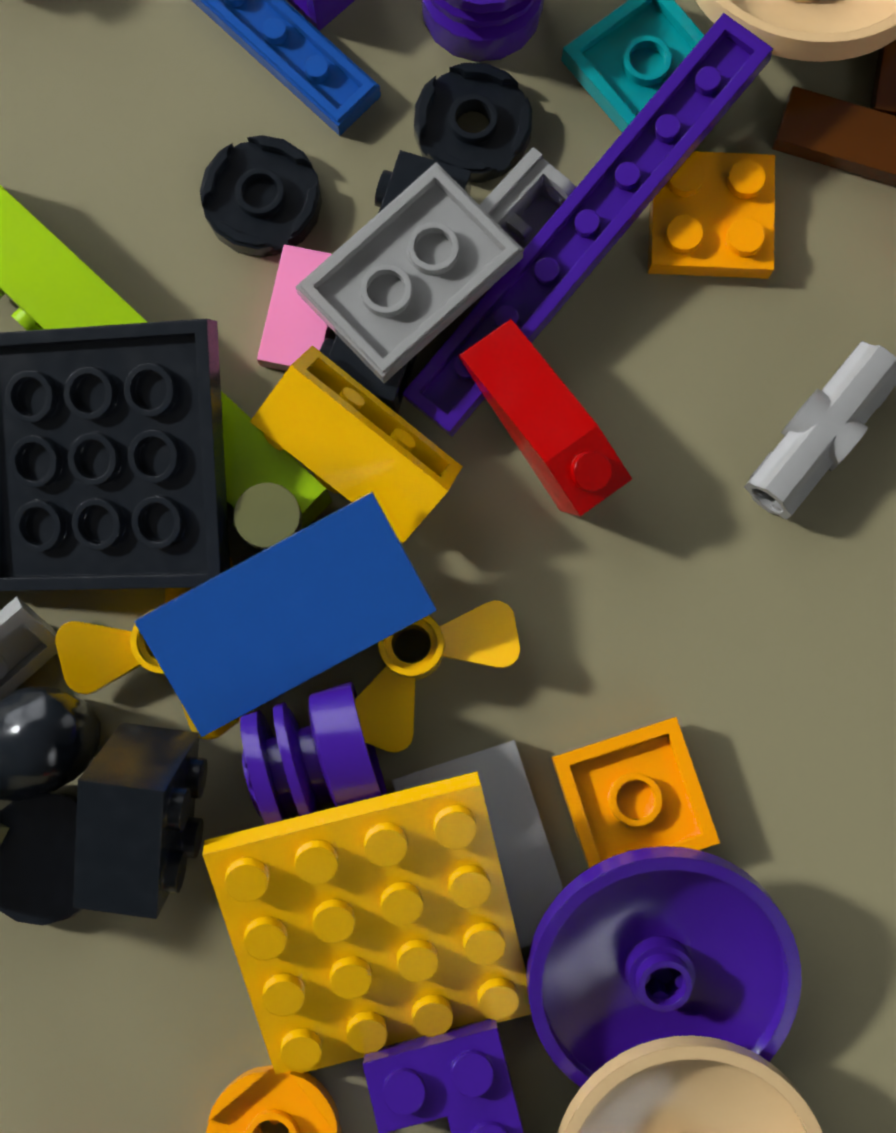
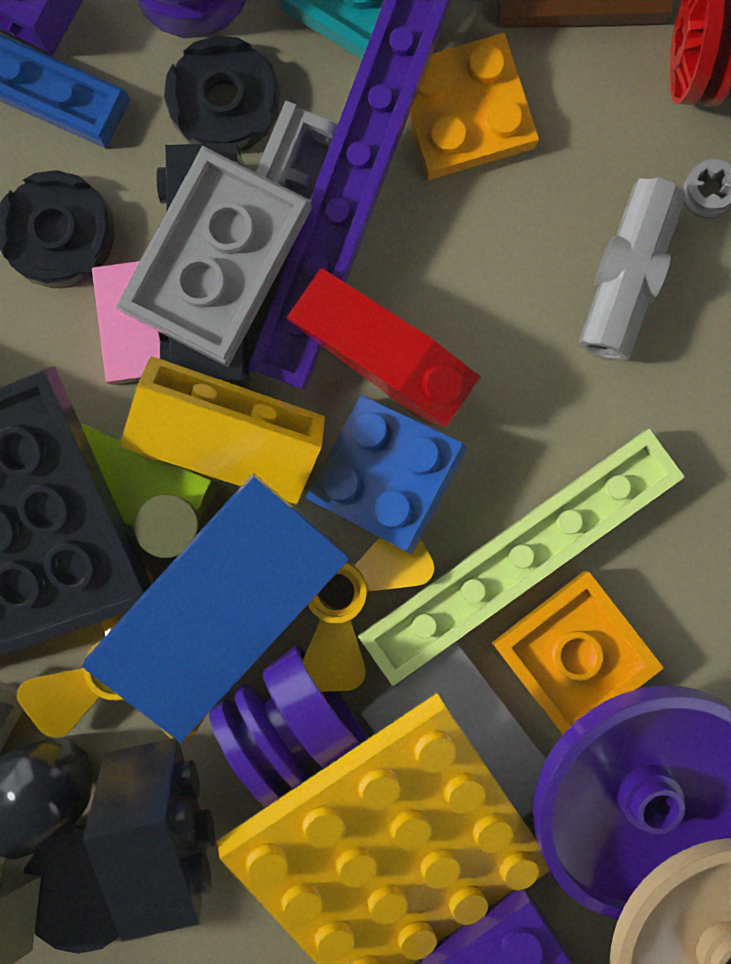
camera: 20 degrees left, 5 degrees up
(504, 546) = (387, 473): none -> blue plate
(611, 677) = (520, 556): none -> yellowish green plate

